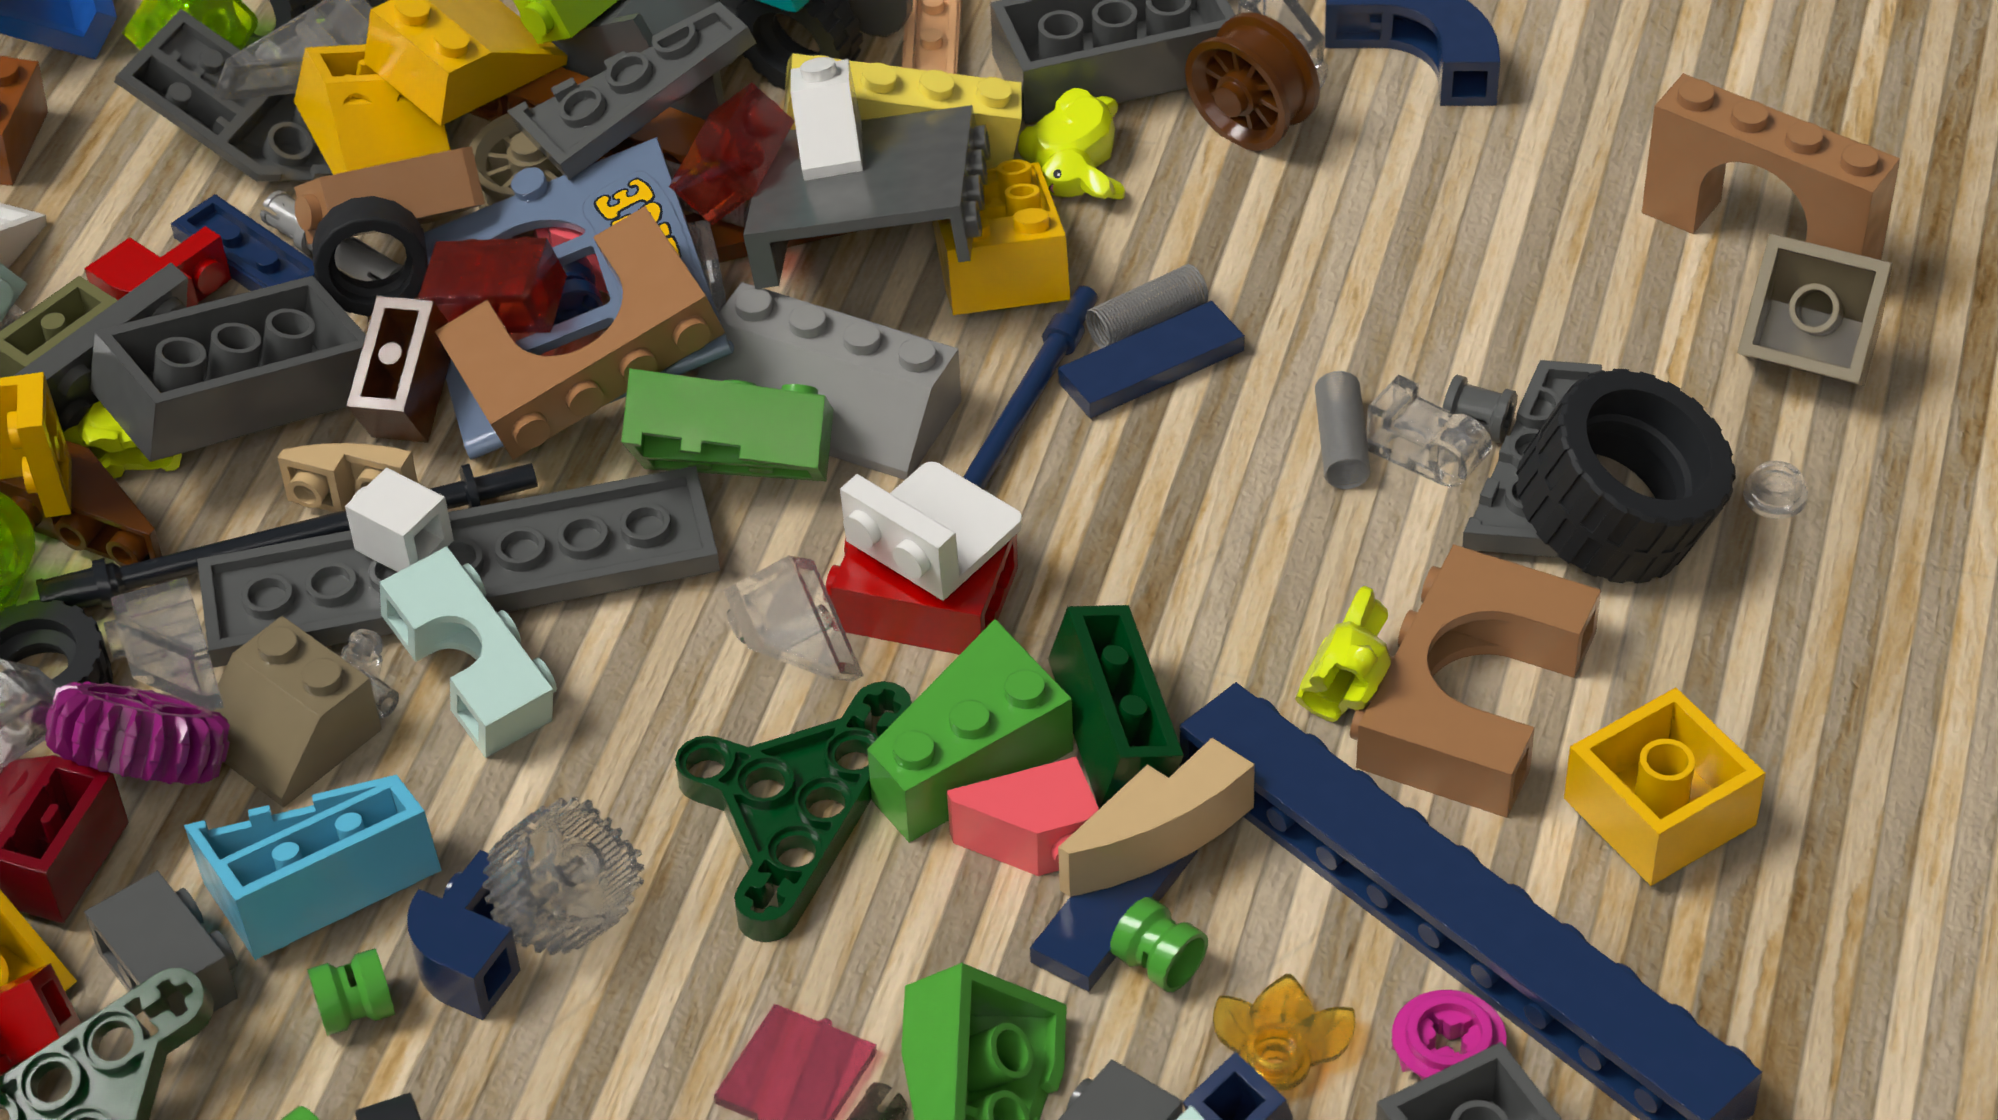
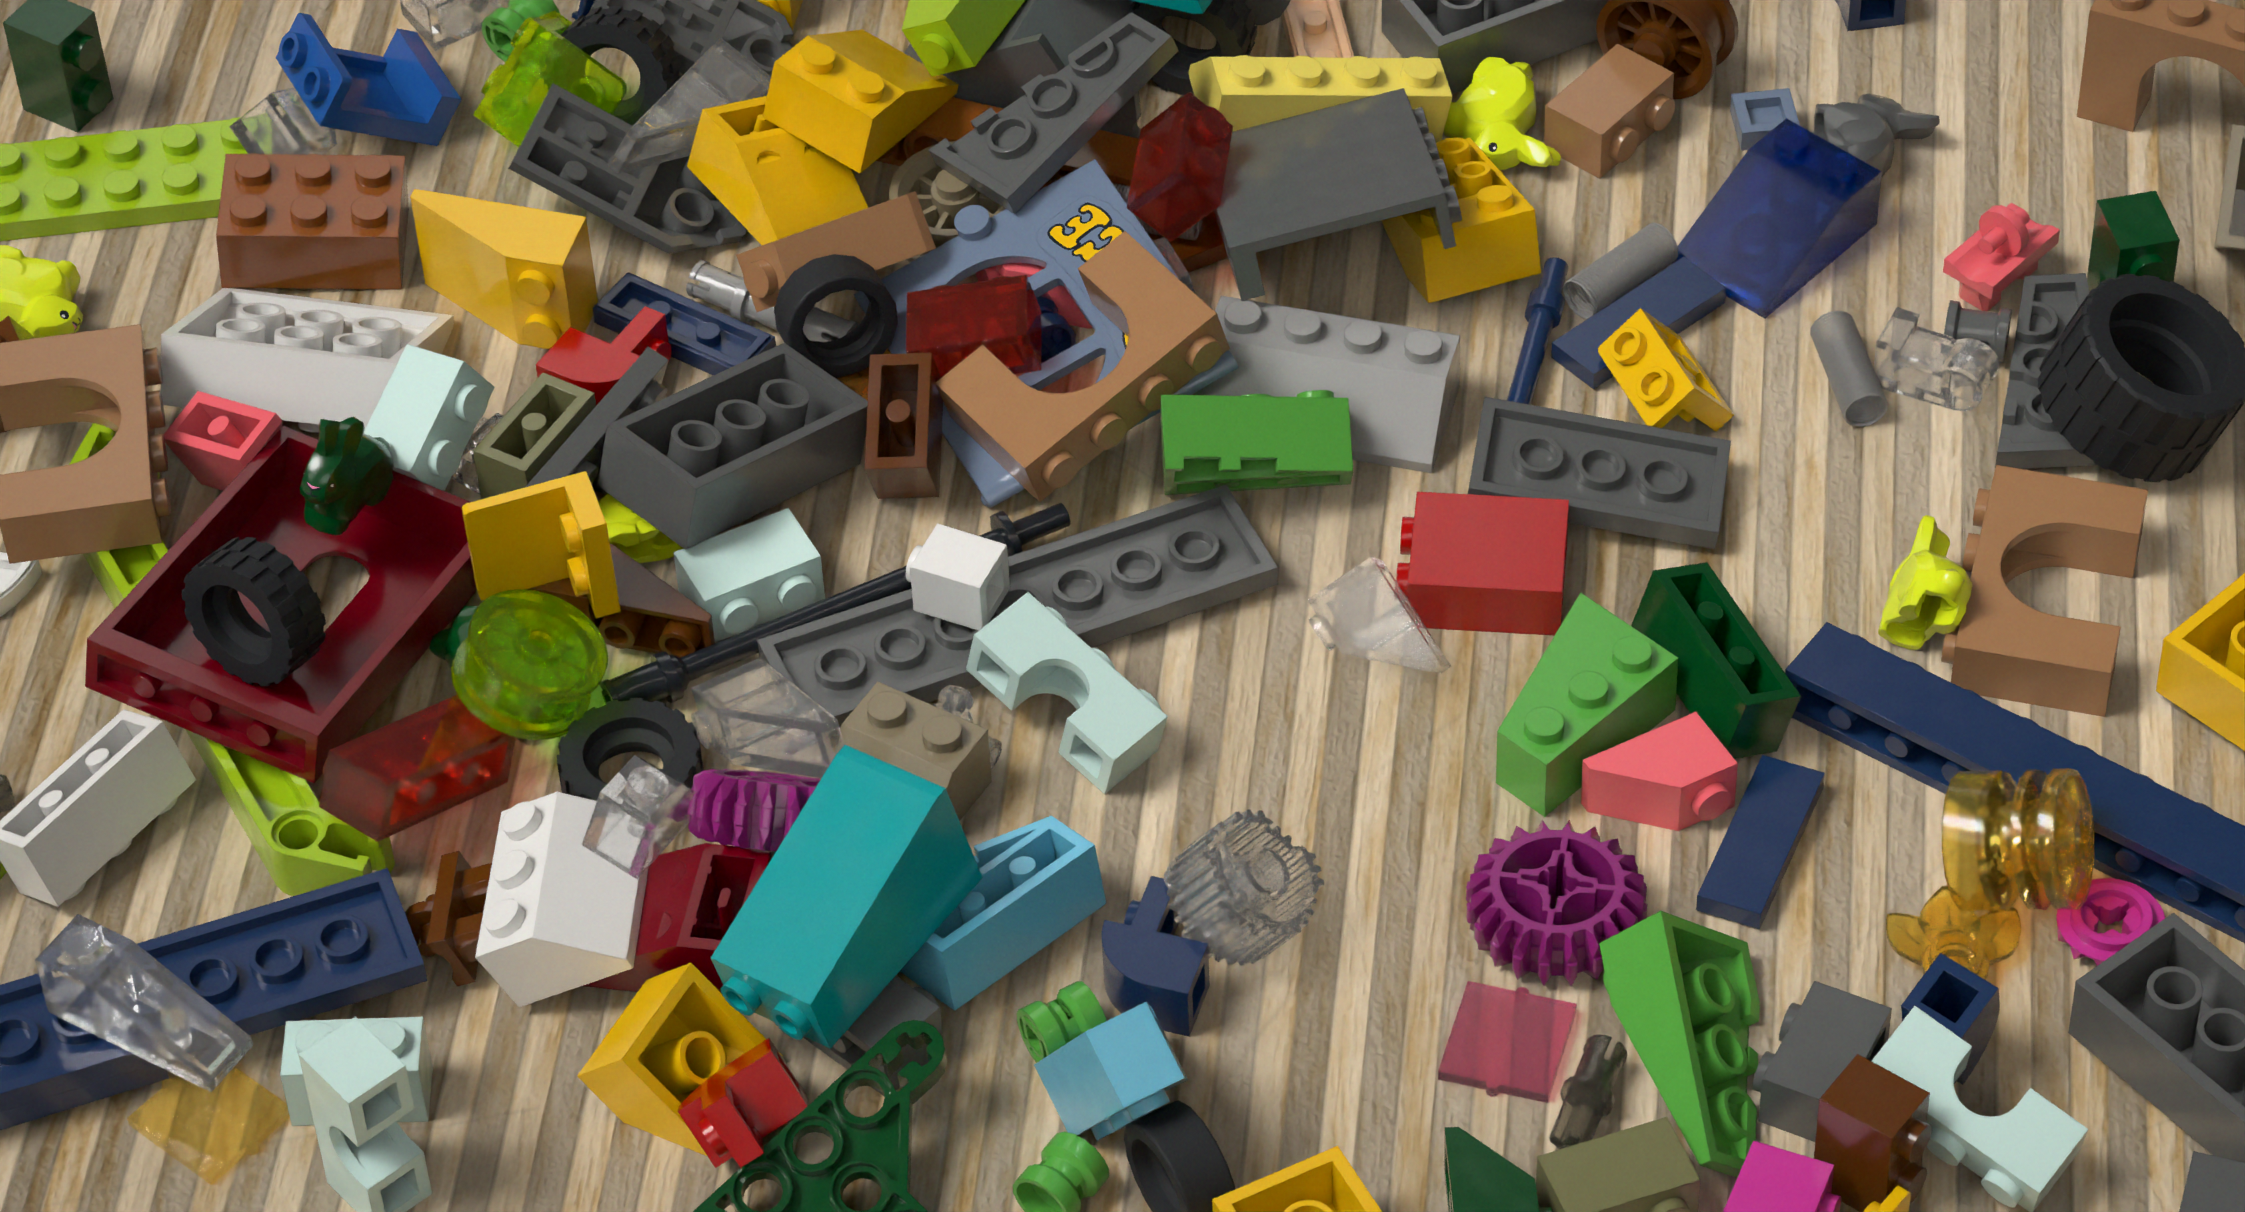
camera: 10 degrees left, 0 degrees up
(100, 172) = (508, 264): none -> yellow slope
(148, 835) = (846, 898): none -> teal slope
(214, 494) = (751, 573): none -> light aqua brick
(332, 473) = (862, 537): tan slope -> none
(380, 1043) = (1112, 1073): none -> medium azure wedge
(772, 825) = (1416, 816): dark green beam -> none
(826, 118) = (1270, 120): white slope -> none
(879, 919) = (1517, 893): none -> magenta gear
(929, 527) = (1492, 512): white bracket -> none
(1077, 501) = (1608, 469): none -> dark grey plate
(1155, 412) = (1661, 374): none -> yellow bracket
(1156, 942) = (1819, 875): bright green wheel -> none
(1158, 820) = (1791, 759): tan slope -> none
(1180, 152) = (1609, 111): none -> medium nougat brick
(1318, 274) = (1783, 217): none -> clear blue slope
(1330, 178) = (1759, 113): none -> sand blue plate
(1361, 939) = (2018, 840): none -> clear yellow wheel
(1417, 205) = (1870, 127): none -> dark grey animal
(1524, 332) = (1998, 254): none -> coral hips
(1649, 335) = (2132, 238): none -> dark green brick

